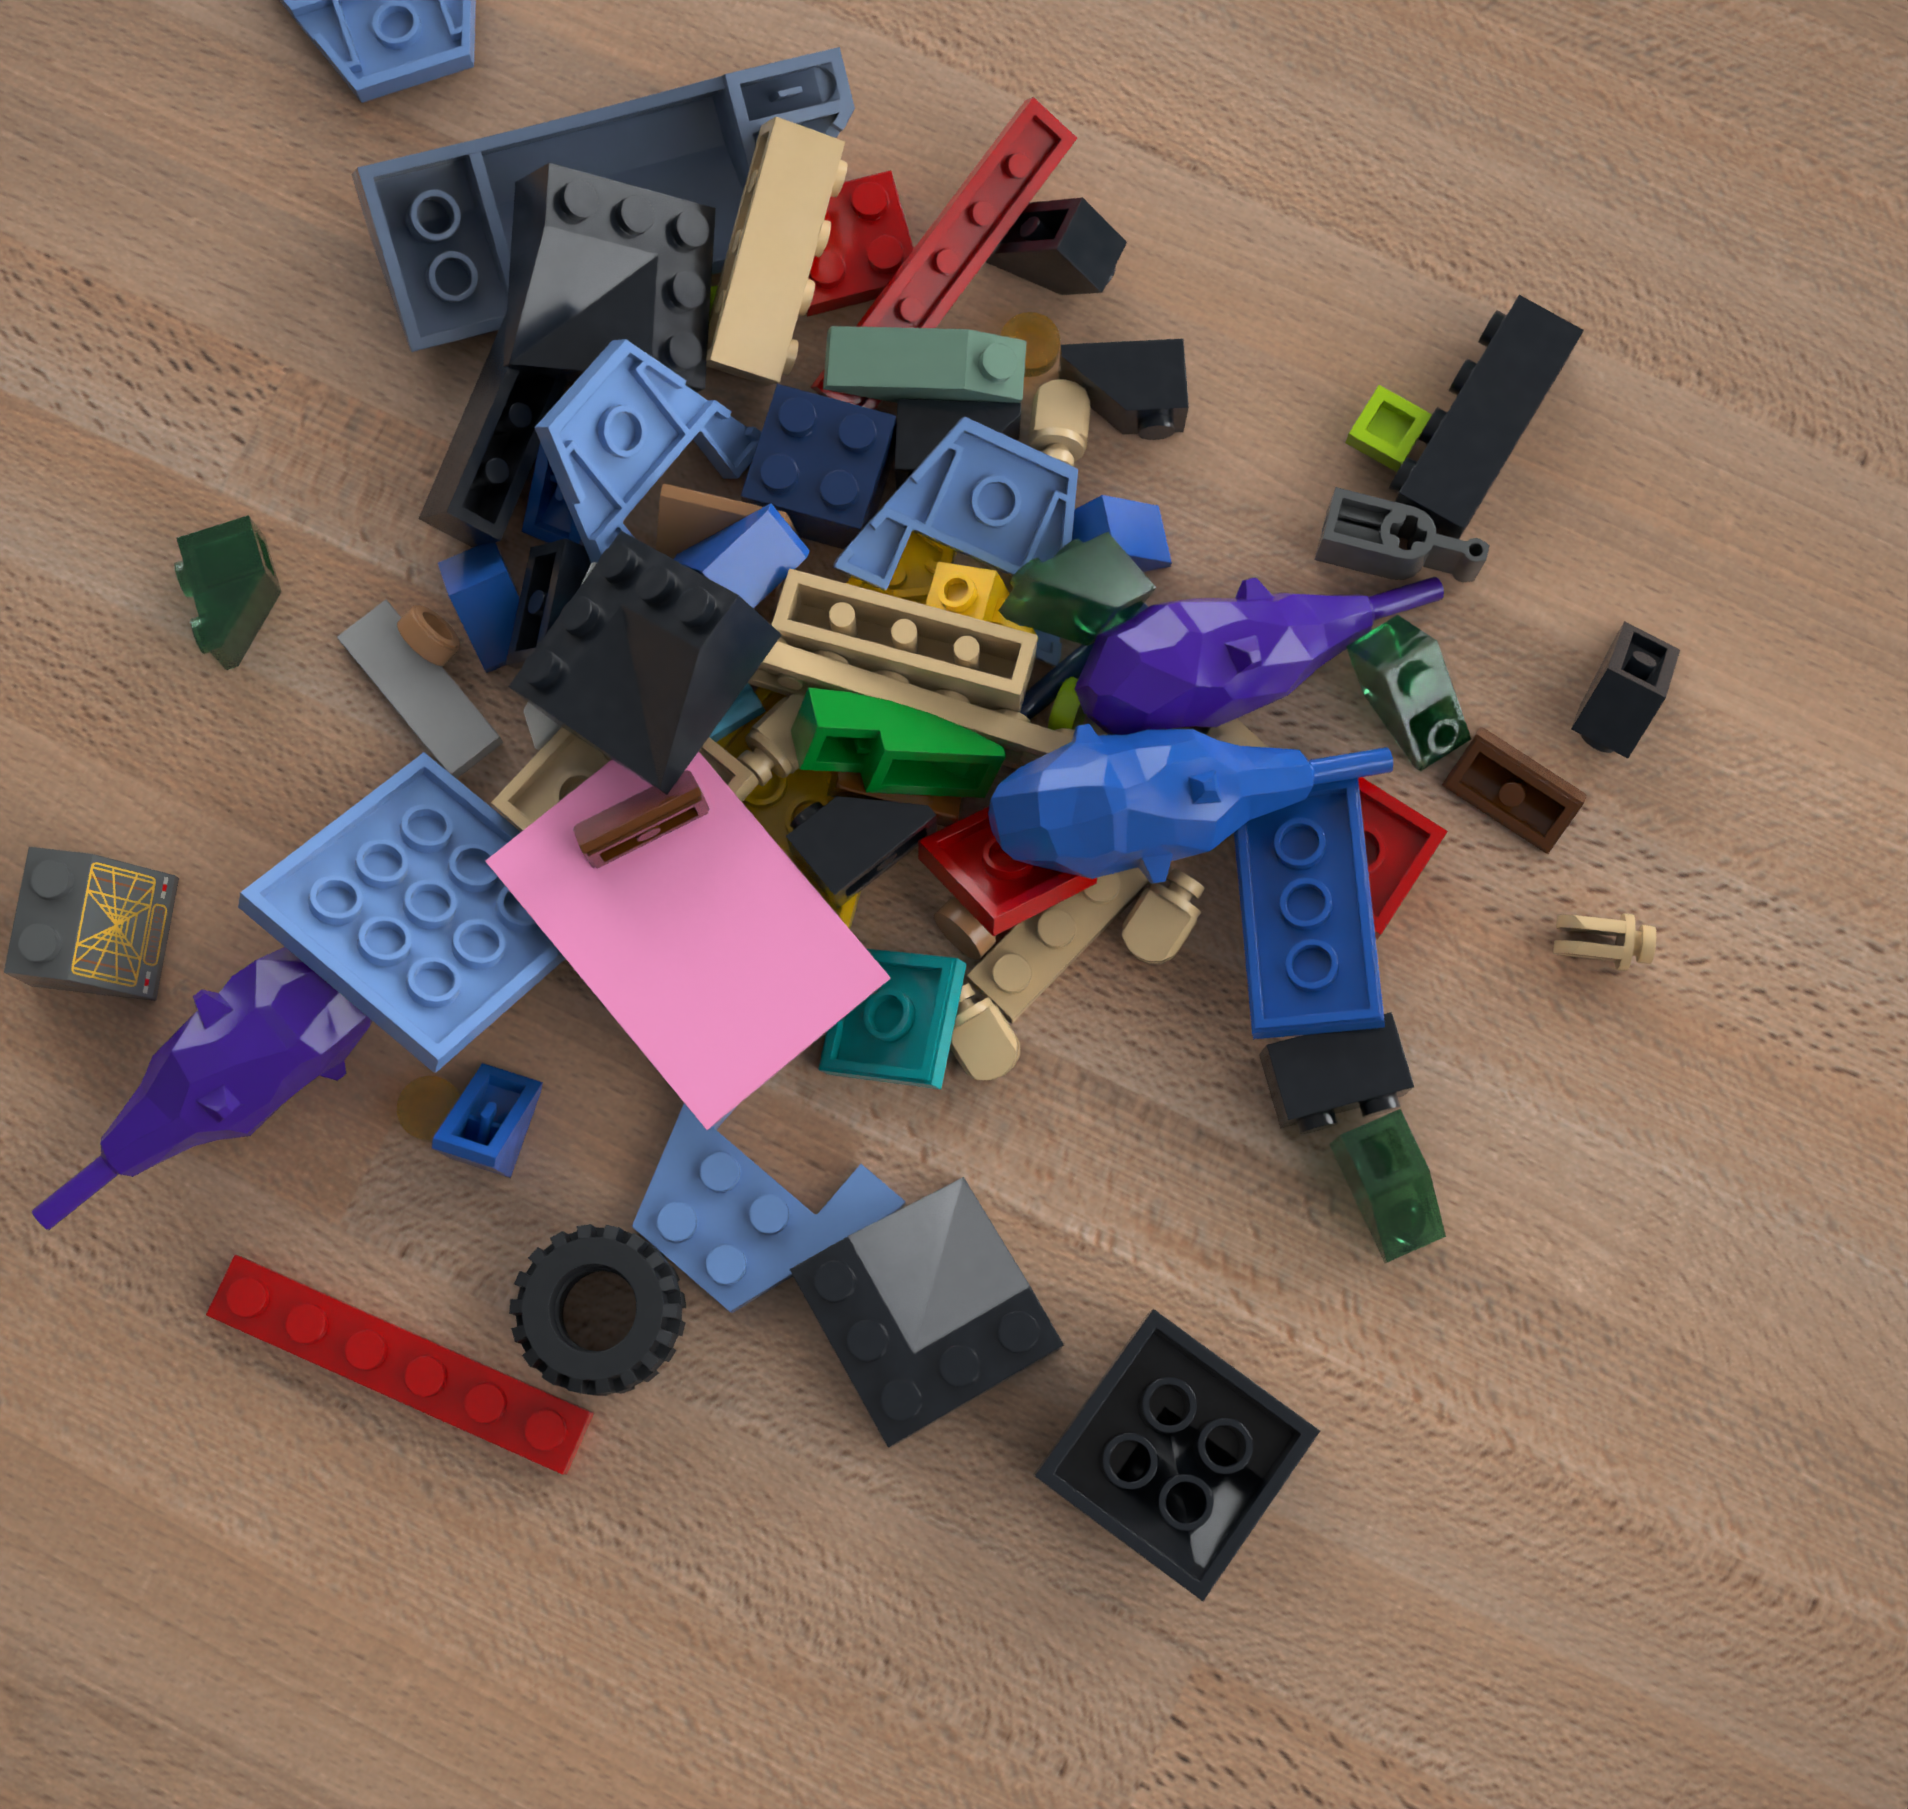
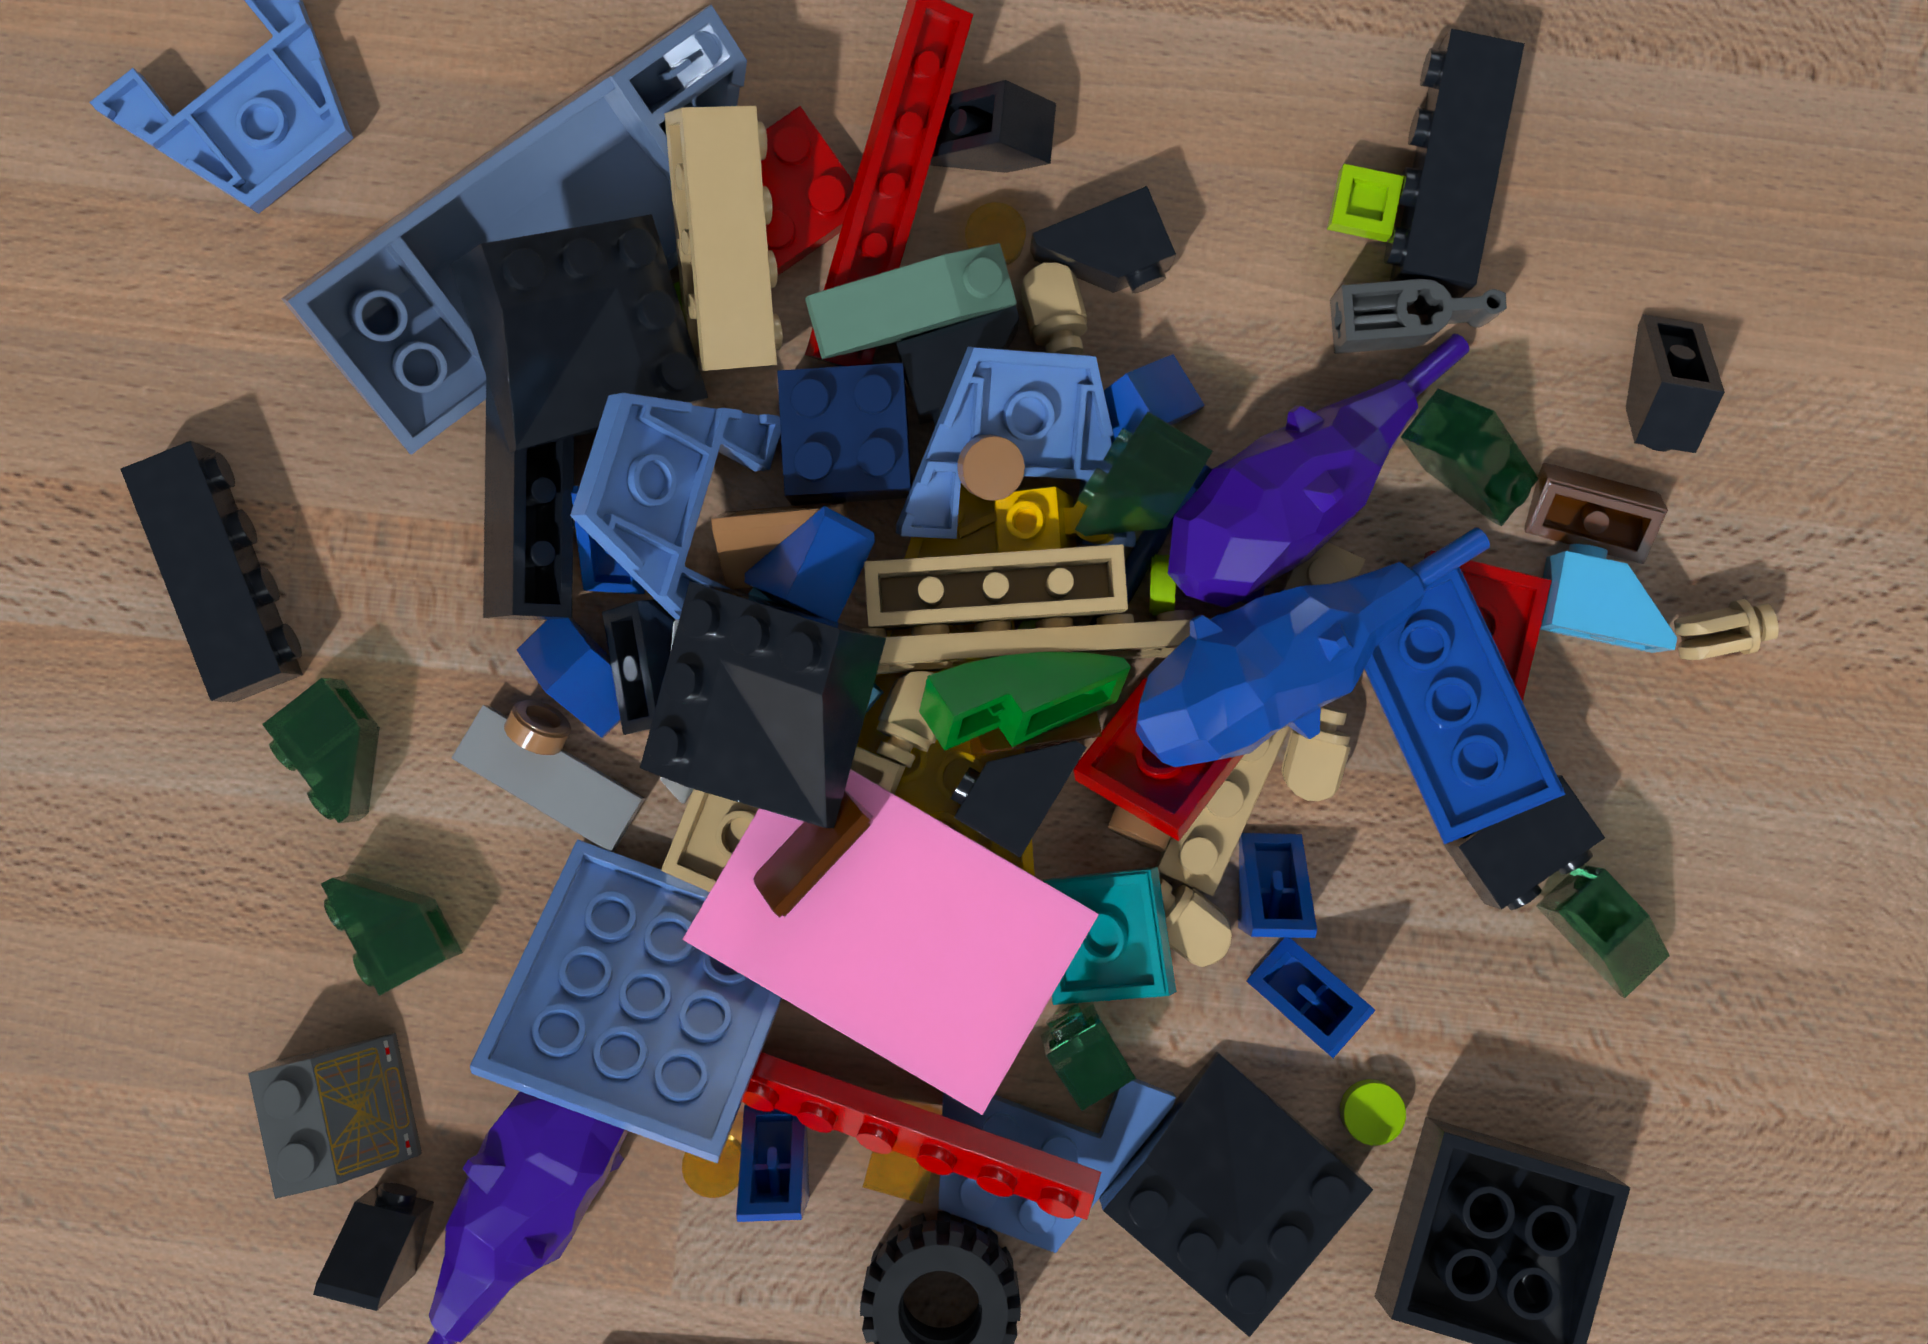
camera: 20 degrees left, 10 degrees up
(81, 1057) = (376, 1247): none -> black slope
(189, 396) = (213, 571): none -> black brick
(218, 778) = (390, 928): none -> clear green slope
(612, 1171) = (897, 1176): none -> clear yellow plate
(641, 1137) = (933, 1140): none -> red plate
(829, 1119) = (1085, 1055): none -> clear green slope
(941, 531) = (991, 467): none -> medium nougat tile
(1071, 1146) = (1310, 996): none -> blue slope
(1074, 1030) = (1274, 887): none -> blue slope
(1096, 1289) = (1372, 1112): none -> lime tile
(1489, 871) = (1602, 602): none -> medium azure slope

